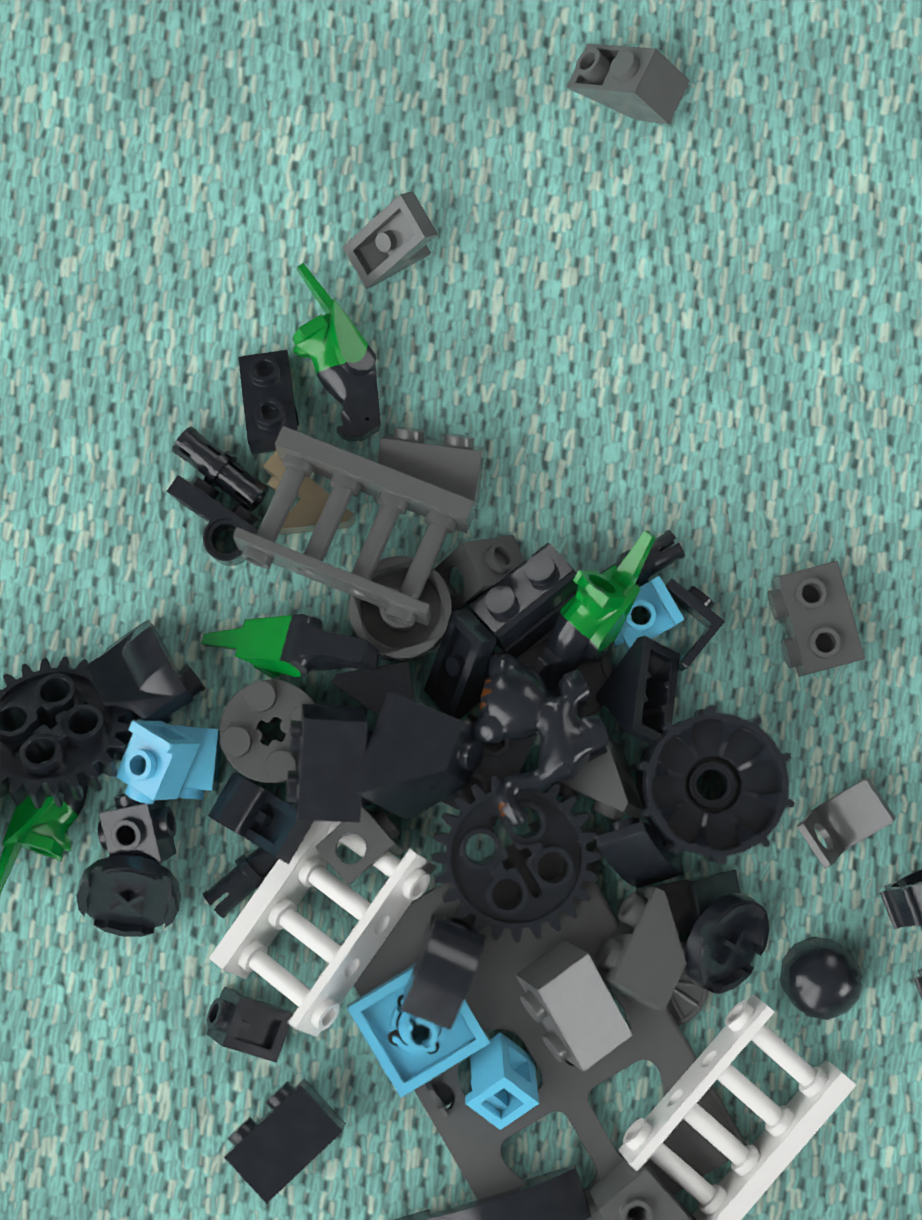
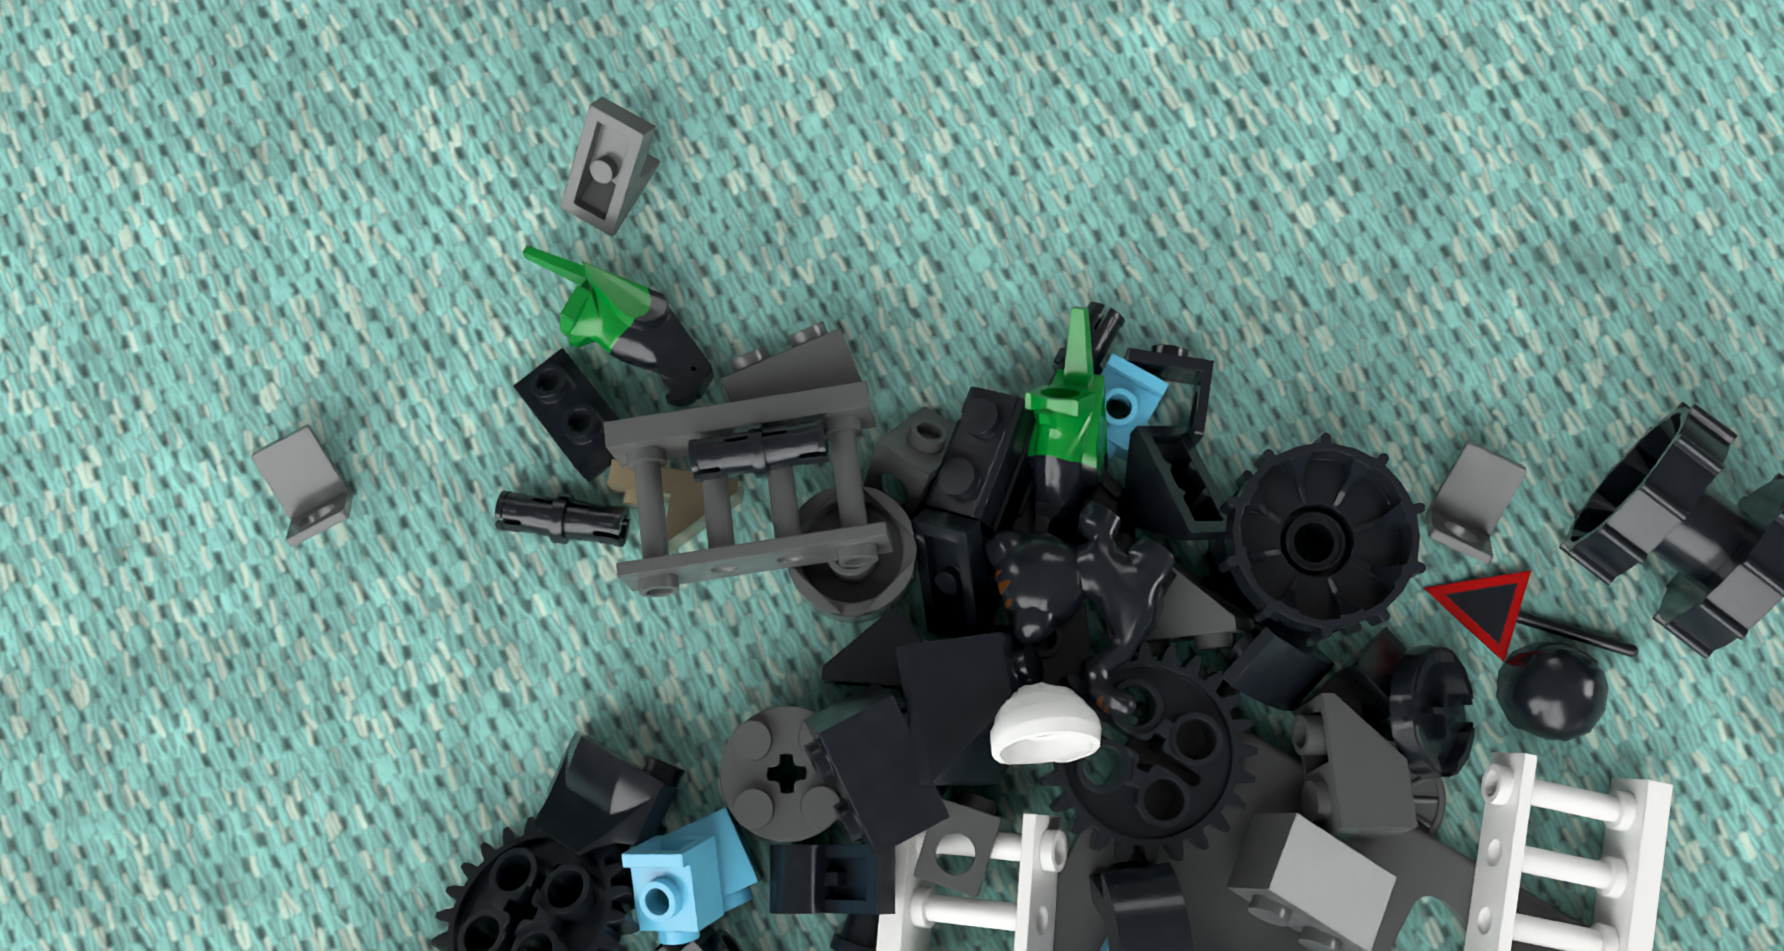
camera: 25 degrees left, 5 degrees down
(59, 344) = (304, 483): none -> bracket
(200, 499) = (560, 564): black plate -> none
(294, 646) = (757, 663): animal -> none
(375, 506) = (759, 450): none -> black pin
(455, 800) = (1044, 726): none -> white piece
(815, 619) = (1306, 305): dark grey brick -> none
(815, 900) = (1492, 608): none -> piece

